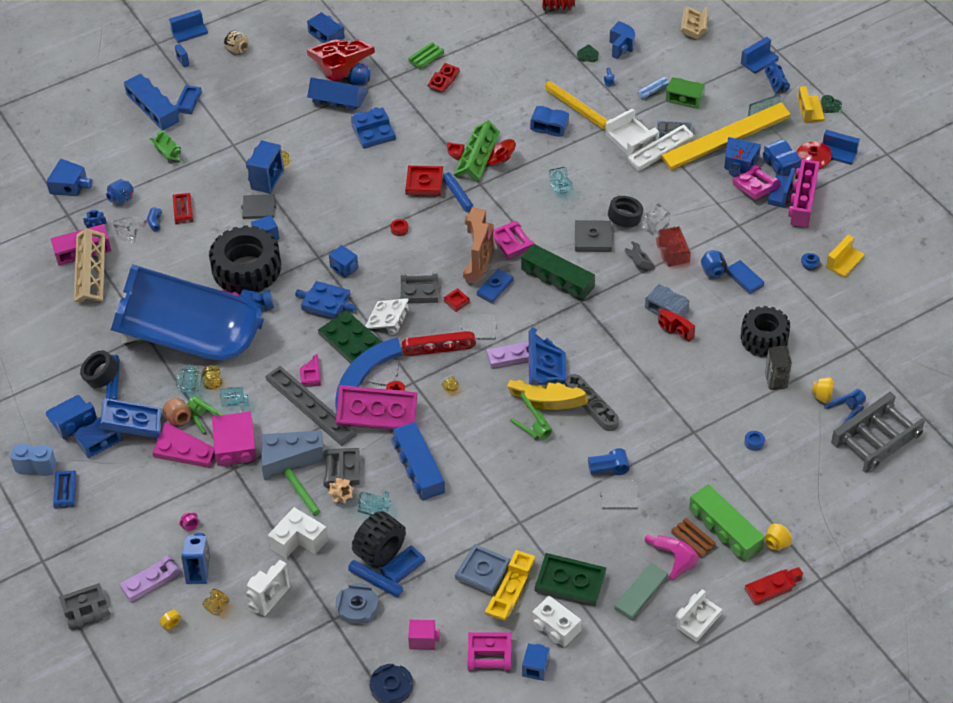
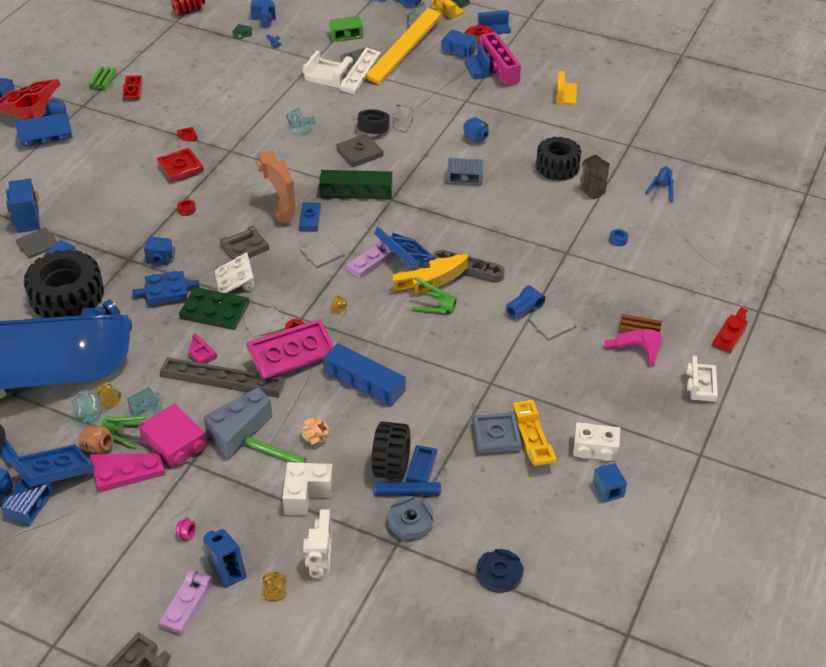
camera: 35 degrees left, 5 degrees down
(64, 502) = (34, 578): blue tile -> none
(170, 619) = (240, 627): yellow tile -> none
(348, 465) = (300, 406): dark grey plate -> none
(367, 361) = (247, 323): blue tile -> none
(371, 503) = (355, 428): clear light blue bracket -> none
(372, 127) = (98, 143): blue plate -> none
(412, 346) = (282, 287): red beam -> none
(423, 634) = (493, 512): dark pink brick -> none
(456, 300) = (285, 240): red tile -> none
(458, 192) = (217, 162): blue axle -> none
(477, 151) = (212, 123): bright green fence -> none
(490, 645) = (558, 489): dark pink plate -> none
(502, 152) = (231, 119): red dish -> none
(507, 241) = (302, 178): dark pink plate -> none
(549, 121) = (253, 84): blue brick -> none
(570, 579) = (576, 404): dark green plate -> none
(576, 104) = (264, 67): yellow axle -> none
(640, 258) = (414, 149): dark grey plate -> none
(641, 591) = (638, 386): sand green tile -> none
(653, 88) = (316, 35): light blue axle -> none
(673, 246) = (433, 131): clear red brick -> none
(673, 322) = (483, 180): red slope -> none
(726, 522) = (657, 302): bright green brick -> none
(741, 156) = (426, 53): blue torso -> none
(745, 277) = (505, 131): blue tile -> none
(752, 186) = (455, 66): dark pink plate -> none
(778, 537) = (705, 293): yellow cone -> none
(810, 261) = (542, 102): blue plate -> none
(823, 389) = (638, 179): yellow cone -> none
(872, 415) = (689, 182): dark grey fence -> none

